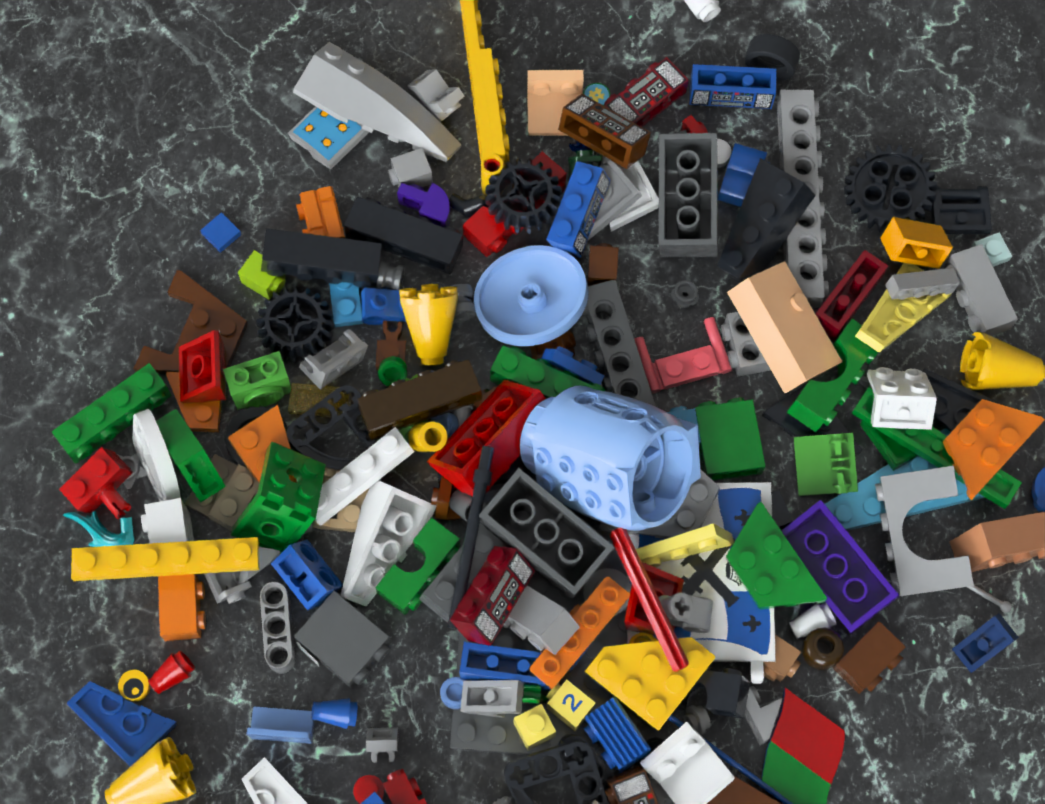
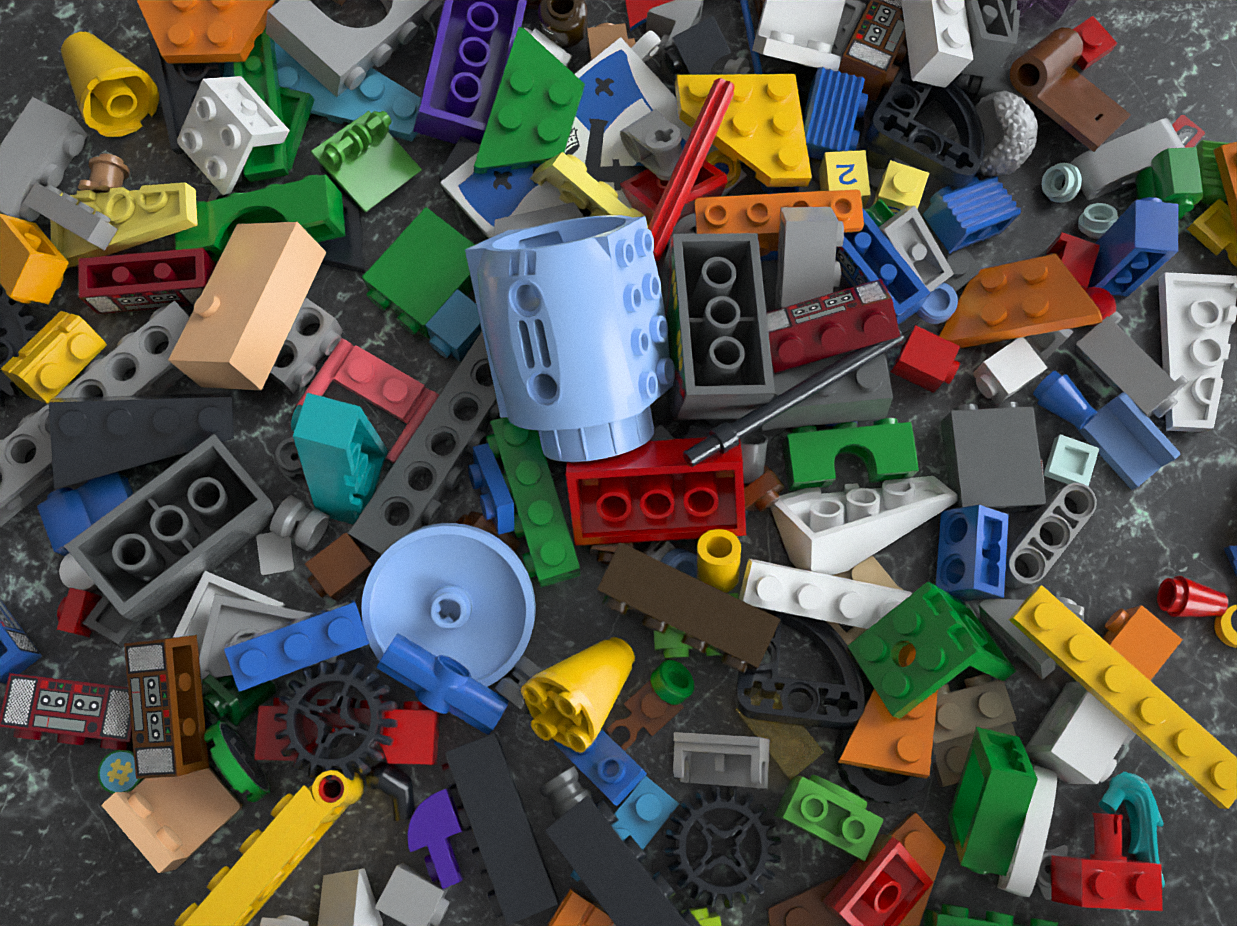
camera: 135 degrees left, 5 degrees up
(300, 683) = (1071, 461): none -> light aqua plate
(317, 761) = (1129, 367): none -> light grey brick
(380, 698) = (1008, 370): none -> white brick
(412, 735) = (1019, 302): none -> orange wing
(429, 660) = (926, 360): none -> red brick
(486, 766) = (971, 212): none -> blue brick
(496, 261) = (443, 684): none -> blue piece
(550, 141) = (237, 761): none -> tile
(643, 247) = (274, 553): none -> white sticker
(645, 266) = (299, 523): none -> light grey wheel
(656, 302) = (338, 455): none -> teal wedge
(844, 218) = (54, 357): none -> yellow brick
(936, 323) = (106, 173): none -> medium nougat brick

